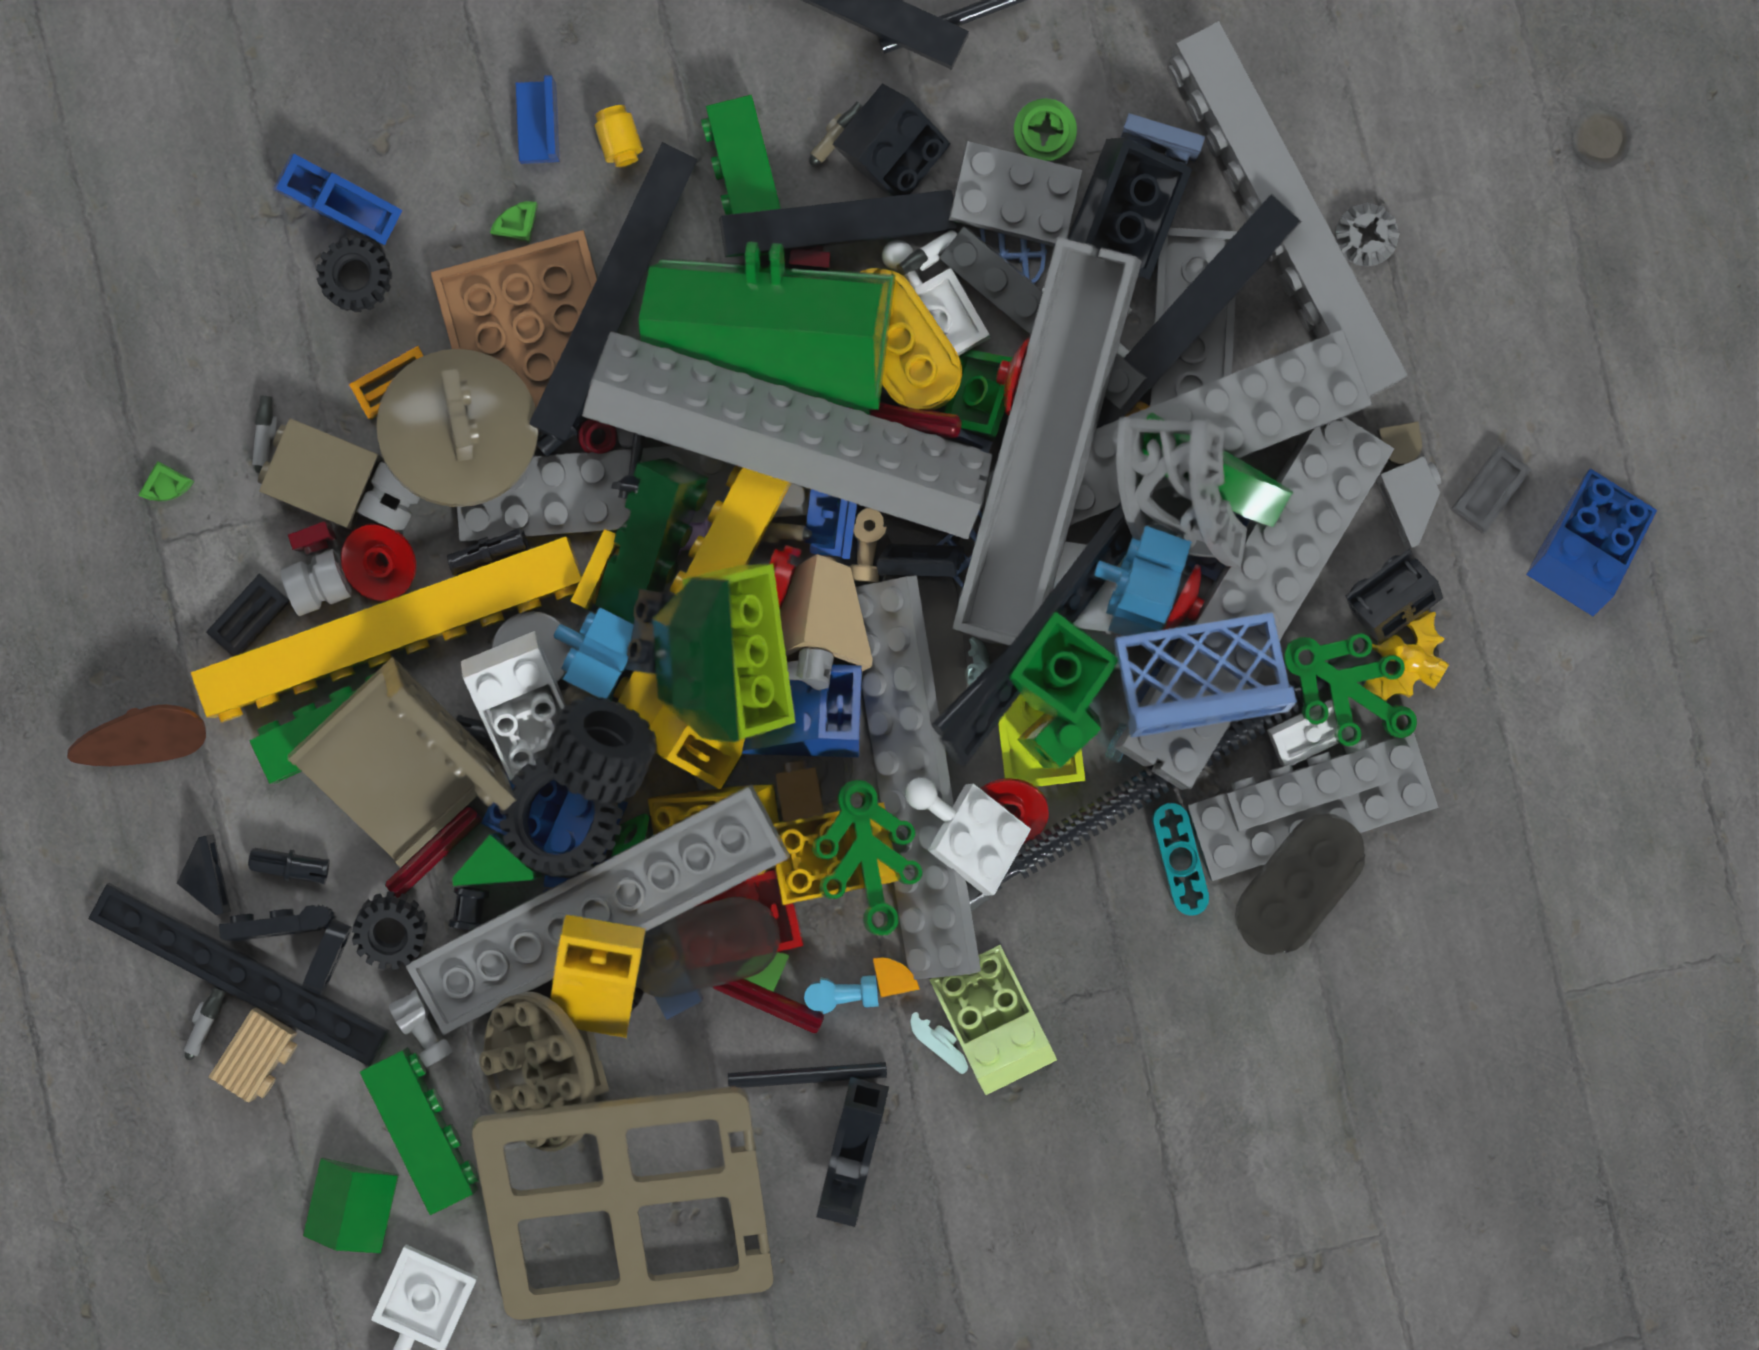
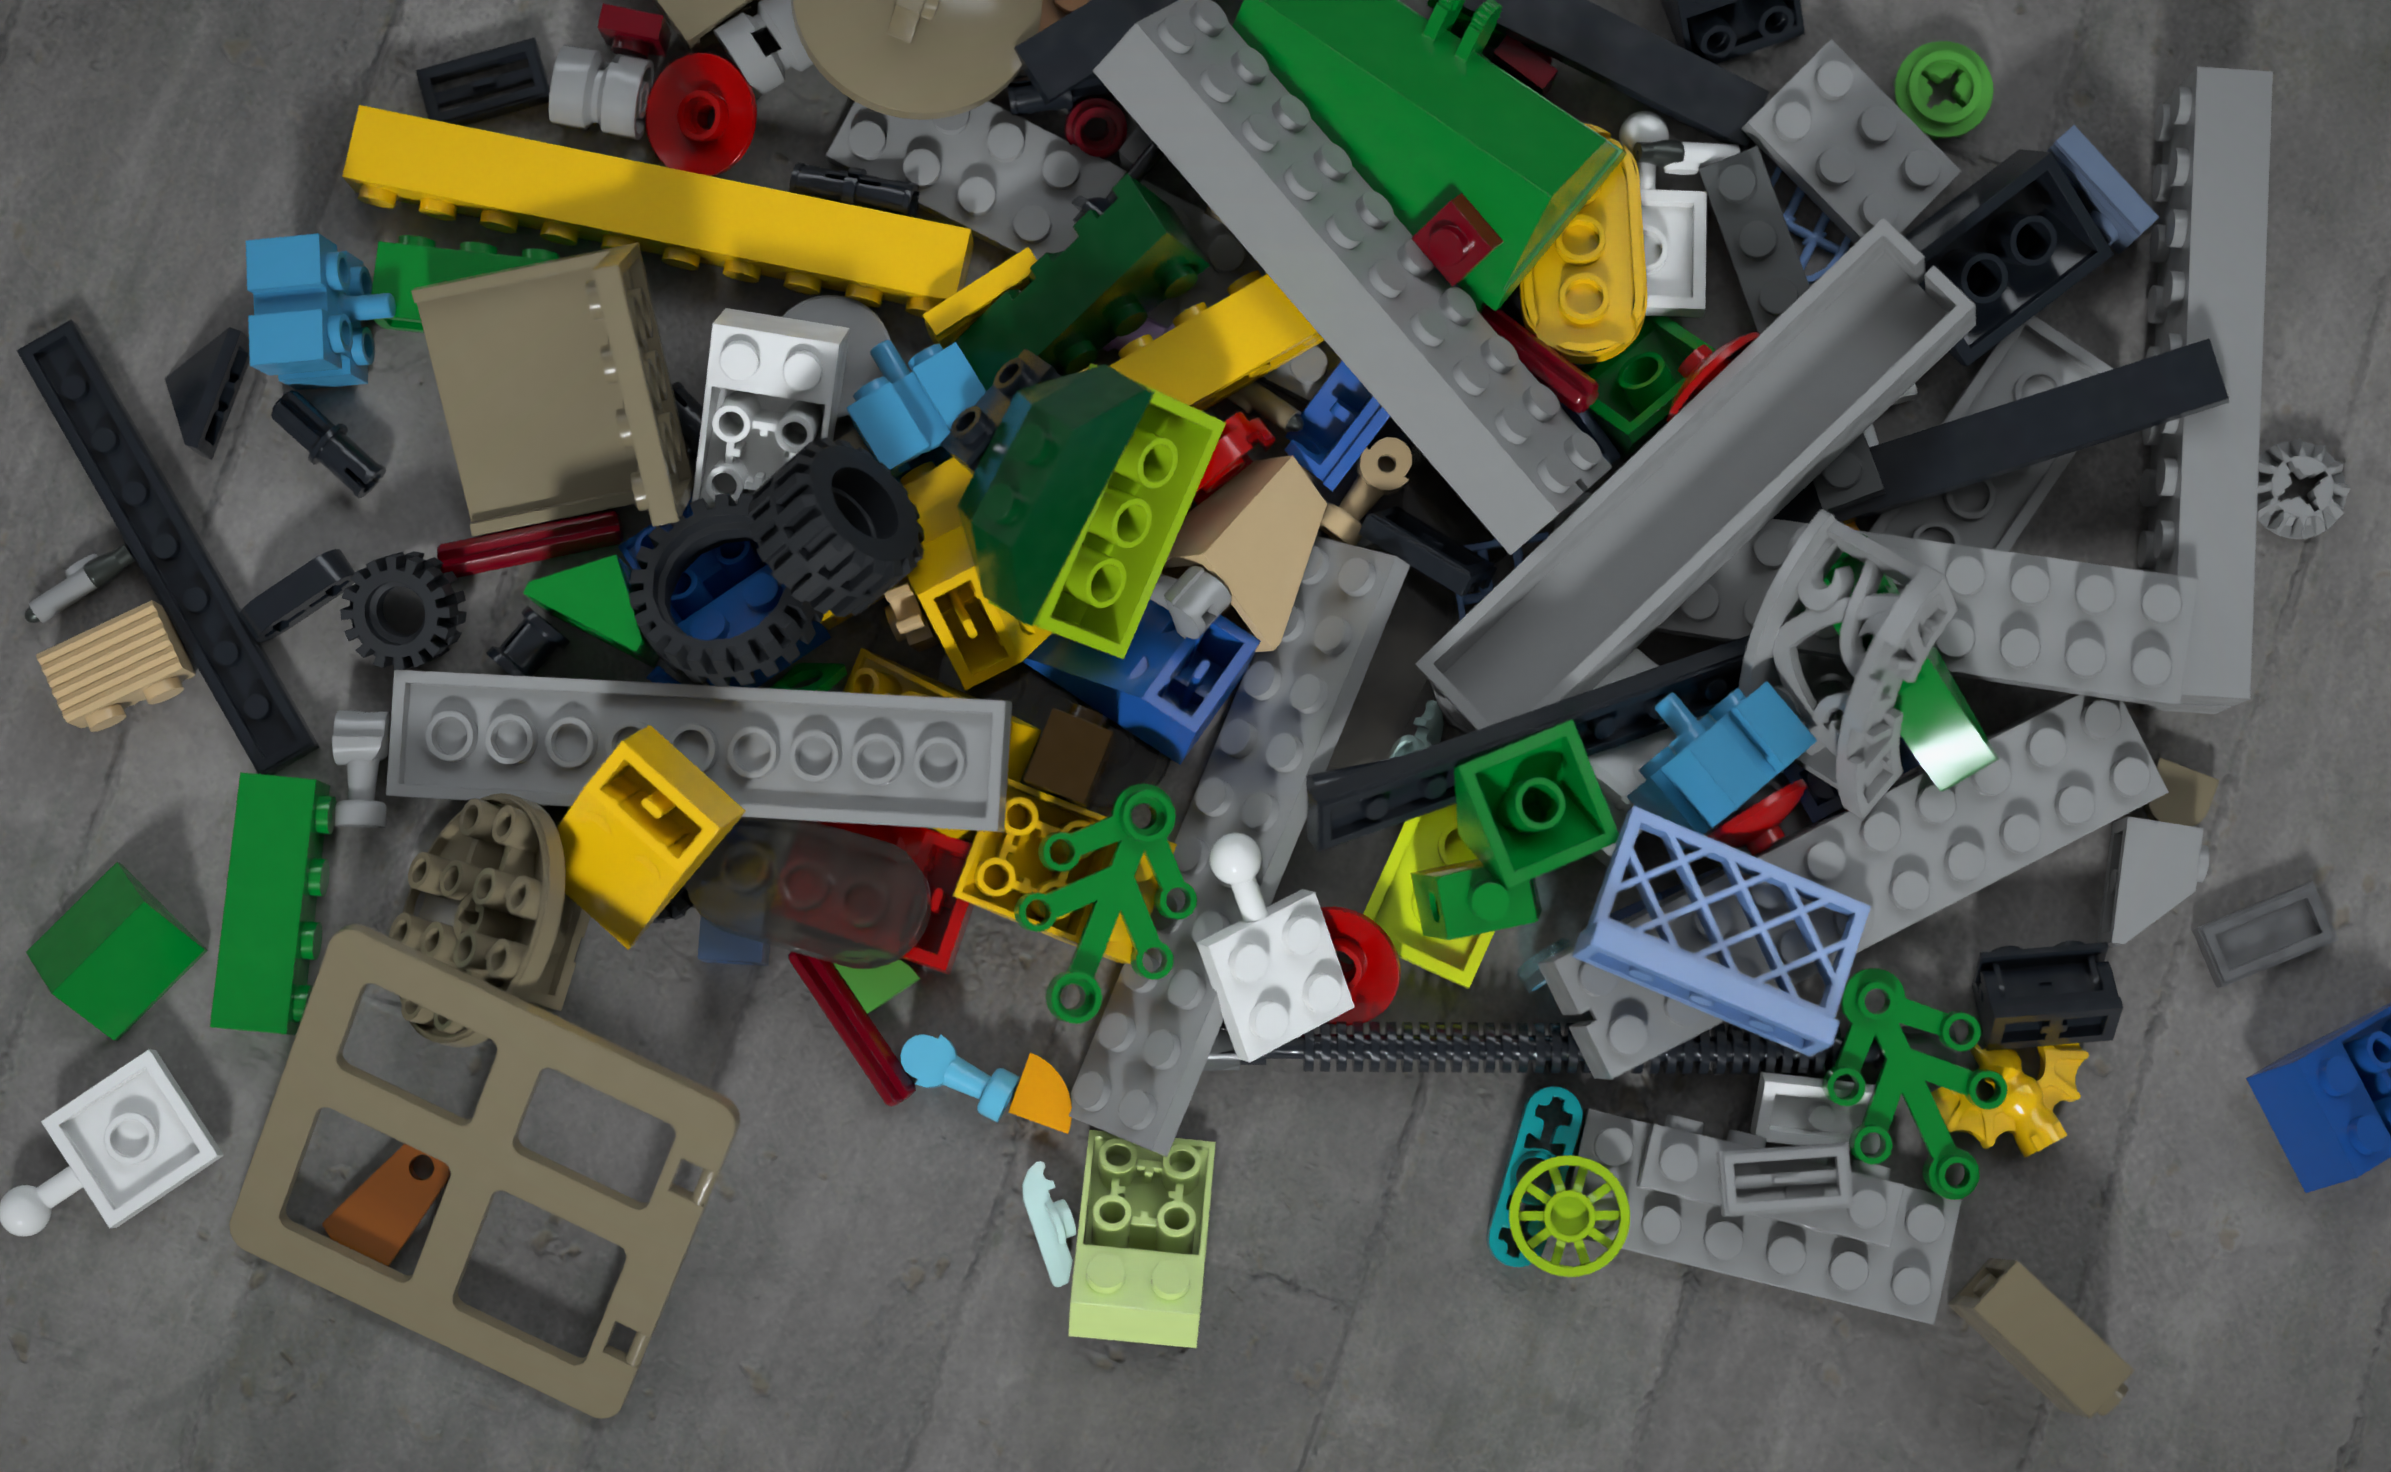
camera: 30 degrees right, 5 degrees down
(141, 737) = (240, 152): copper shield -> none
(237, 801) = (311, 312): none -> dark azure brick
(280, 923) = (263, 512): black hinge -> none
(582, 1251) = (387, 1207): none -> dark orange piece
(664, 769) = (909, 618): none -> tan plate
(807, 1075) = (844, 1158): black bar -> none
(835, 386) = (1457, 239): none -> dark red plate
(852, 1152) = (837, 1298): black arch -> none
(1211, 870) = (1569, 1216): none -> lime wheel
(1285, 801) = (1730, 1183): none -> light grey tile
(1300, 884) = (1679, 1312): clear smoke tile -> none
(1499, 781) = (2042, 1338): none -> dark tan brick

